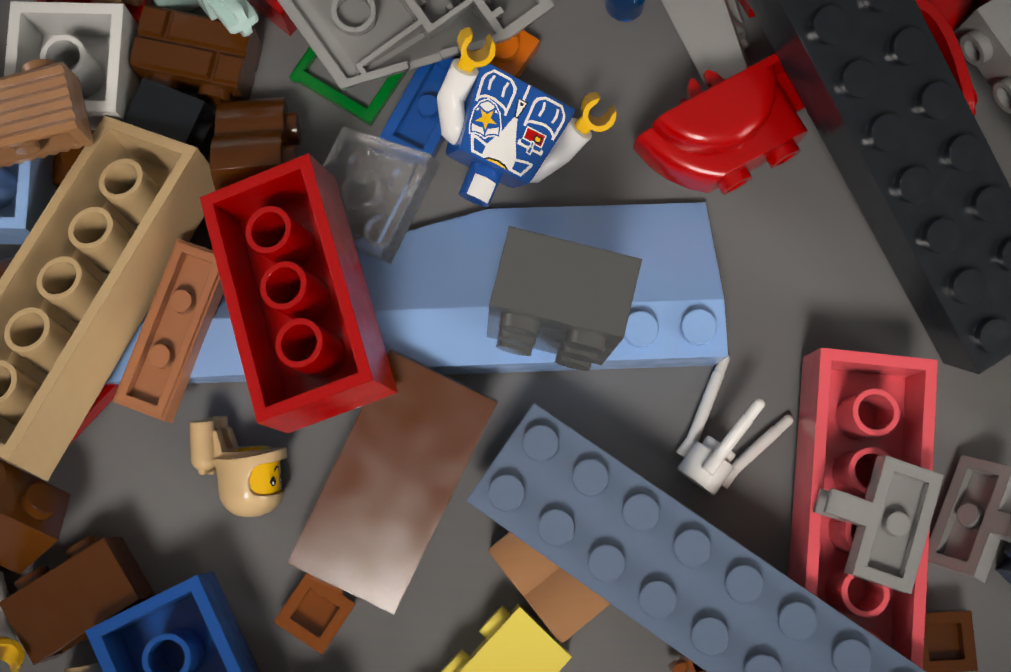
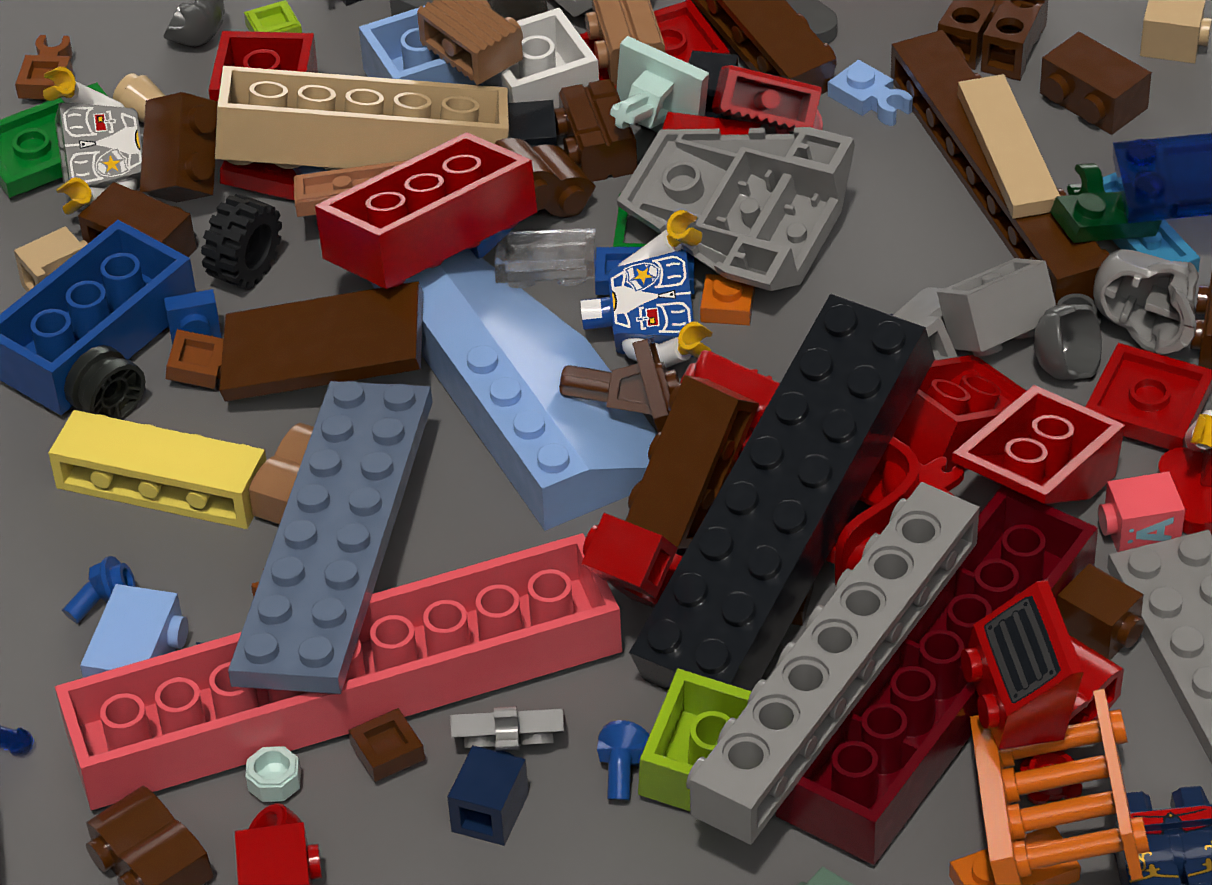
camera: 70 degrees right, 35 degrees down
(174, 498) = (241, 241): none -> black tyre
(246, 475) = (285, 275): tan piece -> none
(253, 593) = (193, 313): none -> blue plate
(561, 298) = (499, 311): dark grey brick -> none
(628, 195) = (633, 388): none -> reddish brown piece
(710, 462) = (456, 537): white plant -> none
(776, 197) = (690, 459): none -> reddish brown brick
(889, 521) = (455, 604): light grey plate -> none
(924, 330) = (630, 558): none -> red arch

